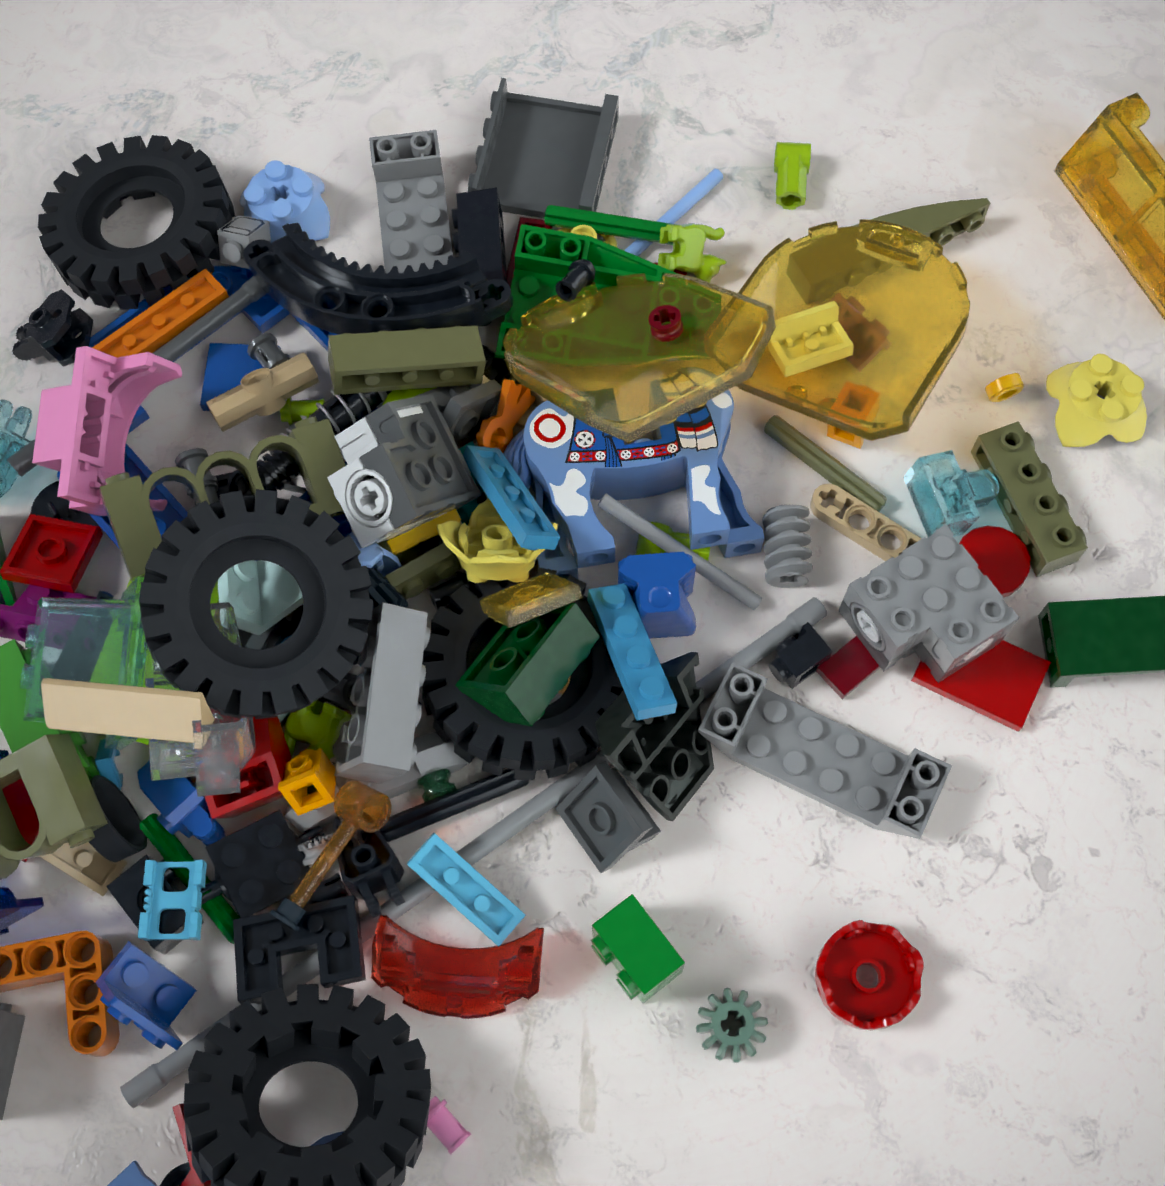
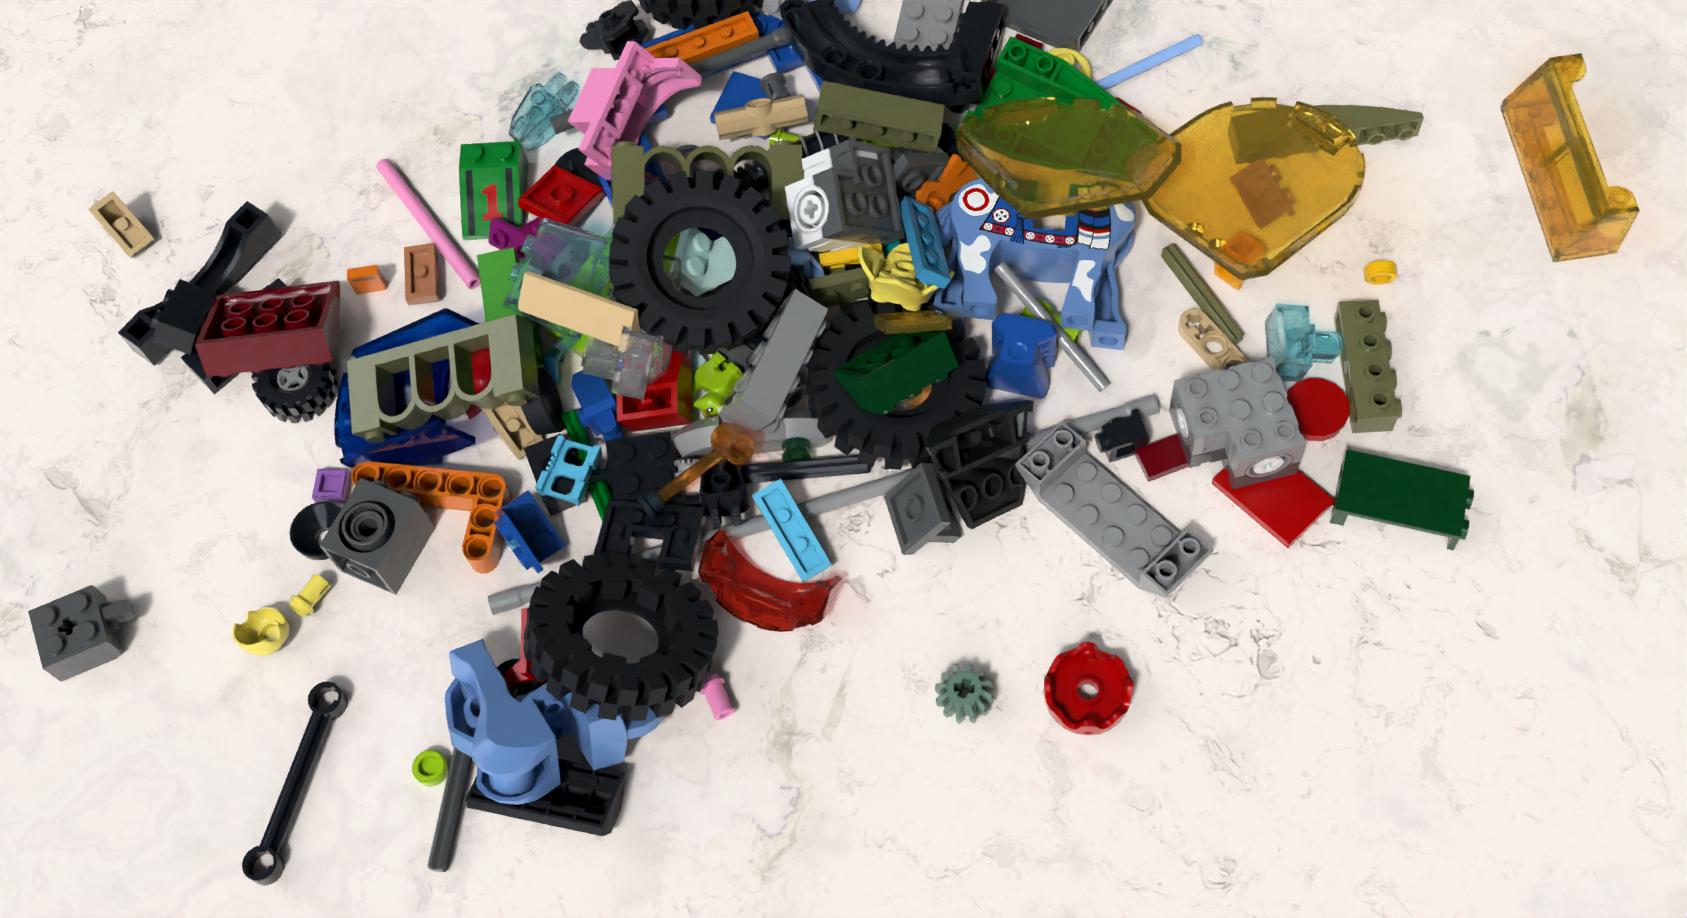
camera: 25 degrees right, 5 degrees down
(304, 770) = (697, 407): light orange brick -> none
(580, 275) = (1044, 88): black pin -> none
(605, 223) = (1092, 58): green axle -> none
(631, 652) = (979, 385): dark azure plate -> none
(636, 950) = (906, 612): green brick -> none
(664, 314) = (1099, 141): dark red bush -> none
(688, 250) = (1147, 90): lime animal -> none
(785, 546) = (1143, 348): light grey piece -> none
(792, 168) = (1262, 49): lime piece -> none
(809, 339) = (1217, 186): light yellow bracket -> none
(1087, 418) = (1442, 314): light yellow brick -> none

